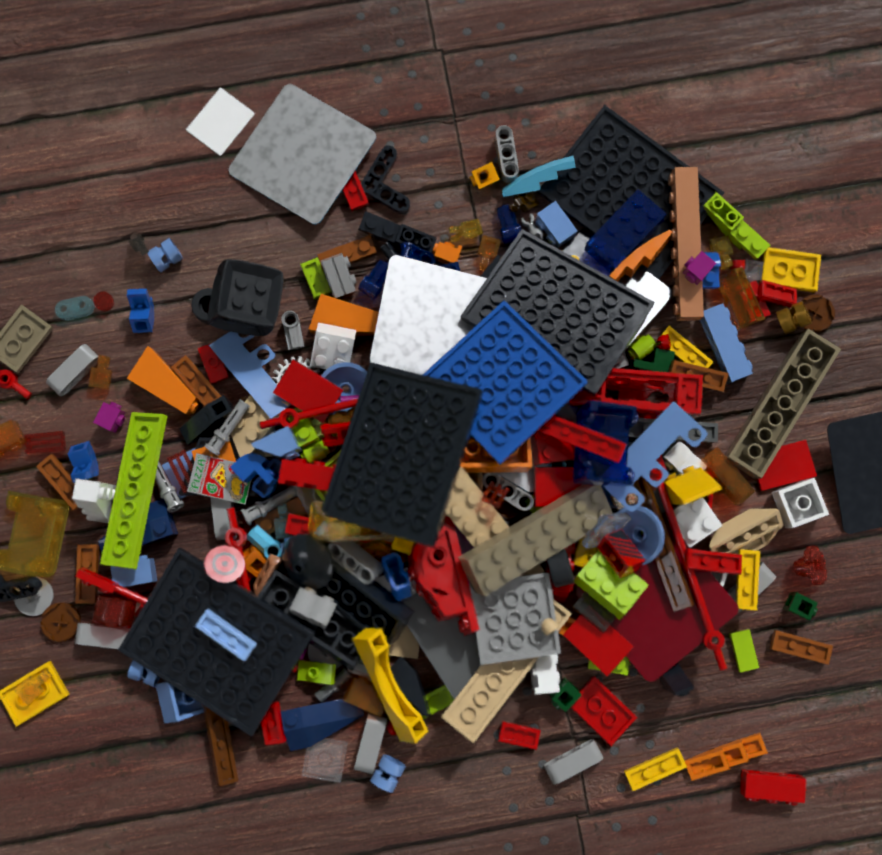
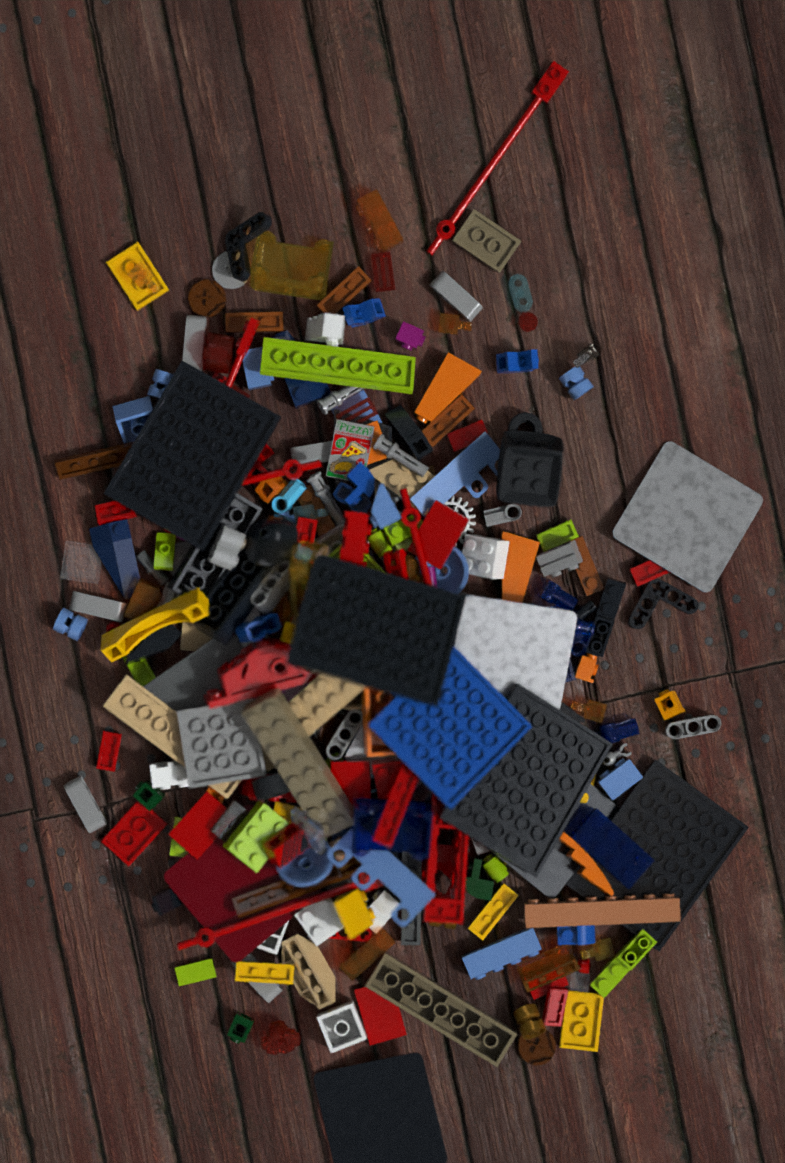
camera: 90 degrees right, 5 degrees up
(220, 121) = (720, 430): white sticker -> none
(224, 565) = (265, 461): tile -> none
(226, 635) = (198, 465): light blue tile -> none
(271, 564) = (259, 499): nougat slope -> none
(467, 229) = (613, 689): clear yellow plate -> none
(497, 490) = (345, 724): clear red tile -> none
(524, 201) = (643, 747): dark brown plate -> none
(530, 181) = (665, 753): medium azure slope -> none
(549, 626) = (214, 775): tan hinge -> none
(655, 769) = (79, 884): yellow plate -> none
(665, 342) = (500, 891): red hinge -> none
(698, 268) = (573, 920): magenta brick -> none
(711, 378) = (466, 932): dark orange plate -> none
(713, 561) = (280, 936): red tile -> none
(725, 756) = (93, 953): orange slope -> none
(773, 787) = (65, 999): red brick -> none
(801, 647) = (200, 1028): dark orange plate -> none

